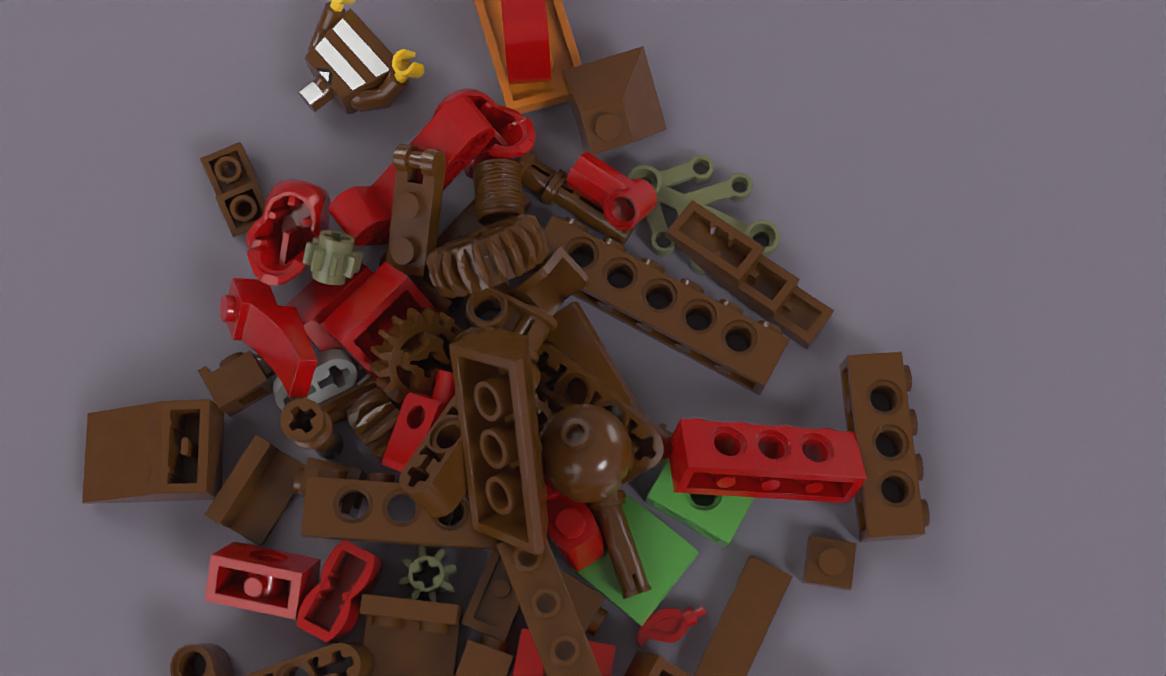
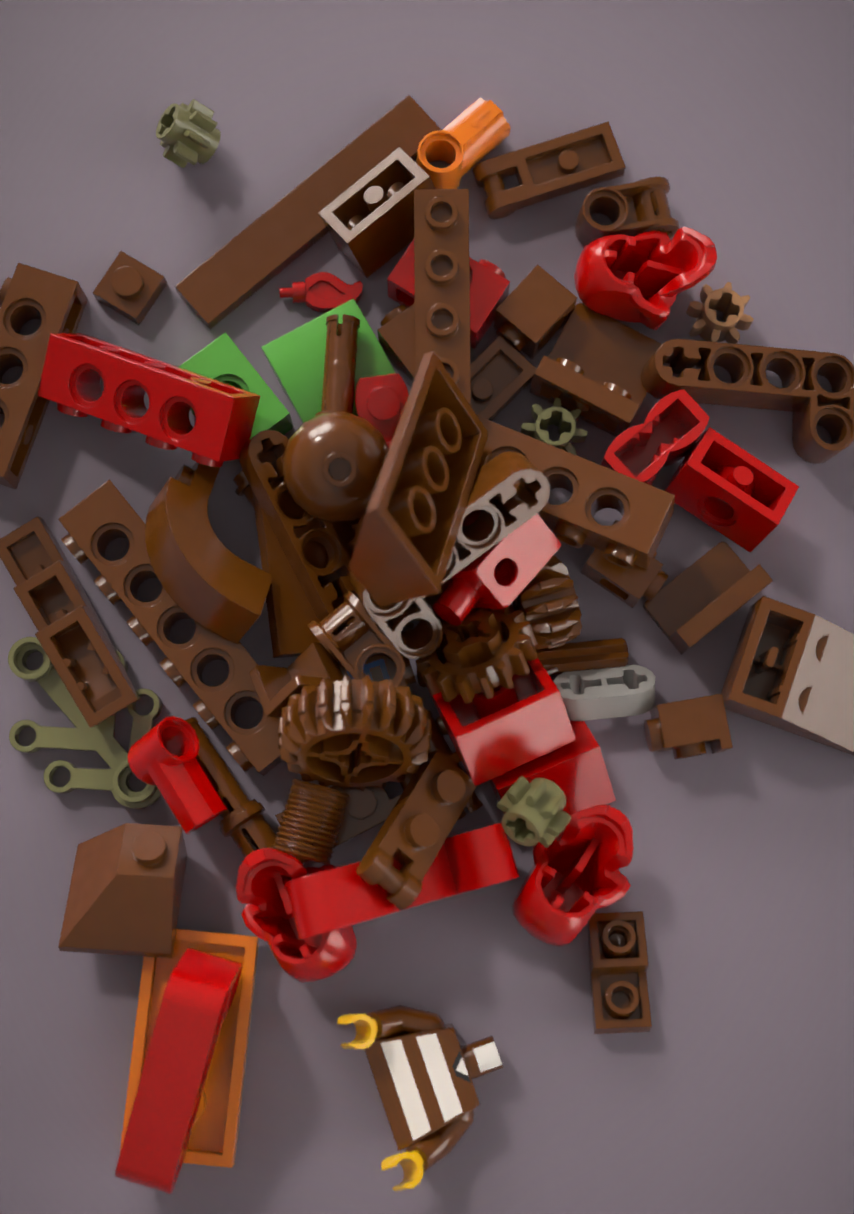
camera: 160 degrees left, 5 degrees up
(271, 332) = (631, 756): red slope -> none
(310, 427) = (621, 600): reddish brown pin -> none
(672, 342) = (194, 564): none -> reddish brown arch

